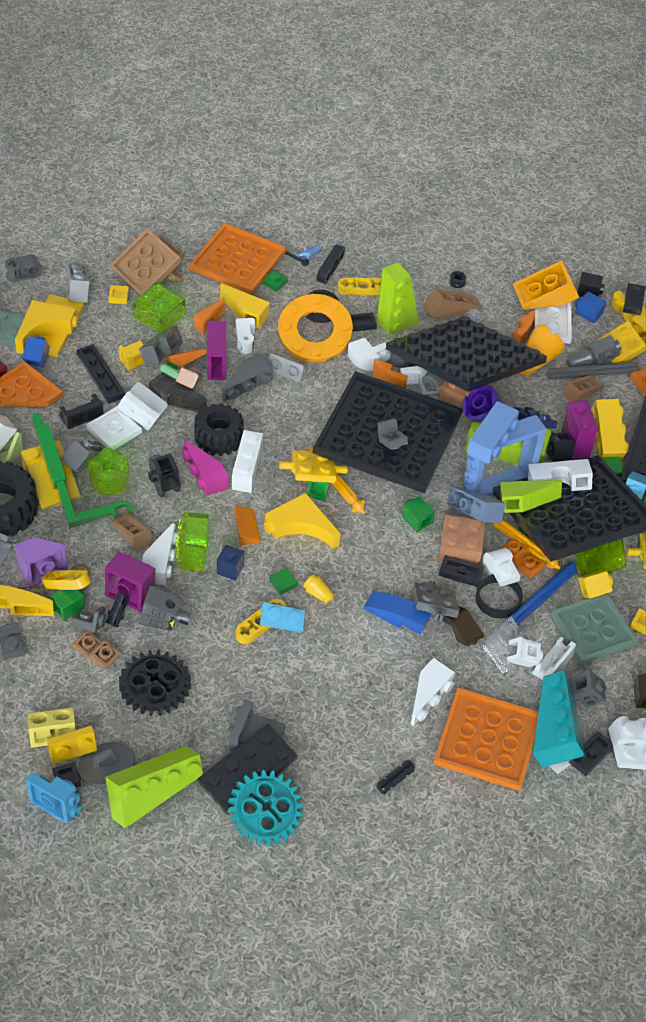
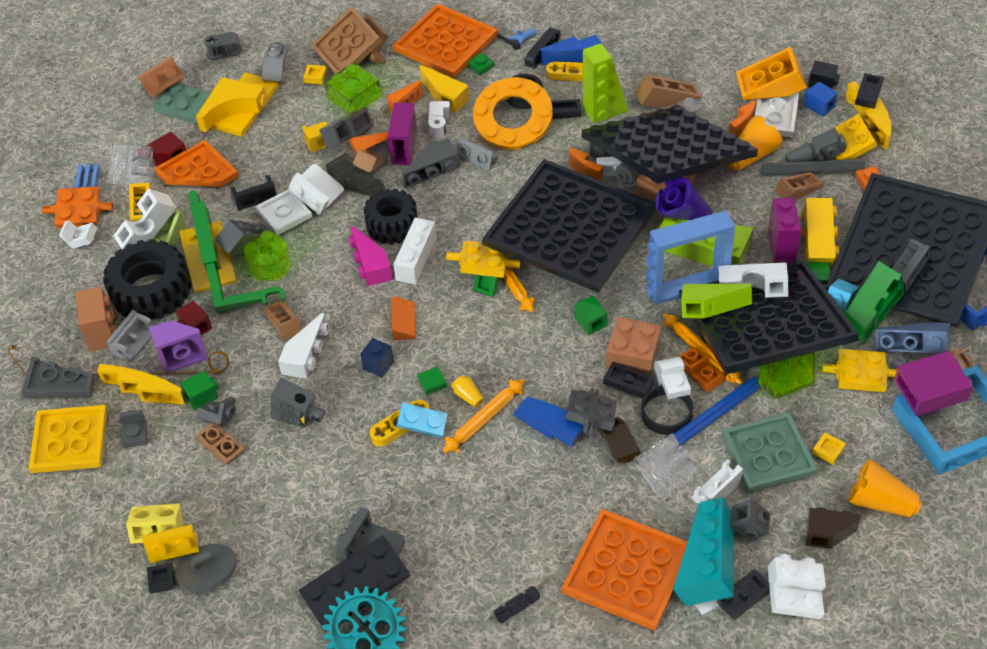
camera: 15 degrees right, 0 degrees up
(36, 351) = (218, 130): blue brick -> none
(49, 531) = (194, 316): none -> dark red brick
(55, 798) = (141, 598): dark azure plate -> none
(66, 579) = (198, 367): yellow beam -> none
(100, 373) = (281, 153): black tile -> none
(117, 610) = (248, 402): black pin -> none
(129, 578) = (262, 368): magenta slope -> none
(150, 783) = (245, 591): lime wedge -> none
(154, 682) = (287, 468): black gear -> none
(164, 474) = (323, 260): black hinge -> none
(170, 369) = (348, 150): tile -> none
(192, 541) = (339, 333): clear neon green brick -> none
(301, 517) = (460, 313): yellow arch -> none
(336, 610) = (483, 416): none -> light orange wheel
(359, 266) = (568, 50): none -> blue slope
(363, 354) = (559, 142): white brick -> none
(390, 435) = (567, 227): dark grey bracket -> none
(432, 683) = (573, 504): white slope -> none
(457, 279) = (678, 66): black bush -> none
(476, 505) = (655, 308): sand blue slope -> none
(493, 432) = (672, 227): medium blue brick -> none
(527, 652) = (683, 474): white window -> none
(544, 418) = (739, 218): dark blue hinge -> none
(561, 447) = (761, 248): black brick -> none
(595, 584) = (778, 402): yellow brick -> none

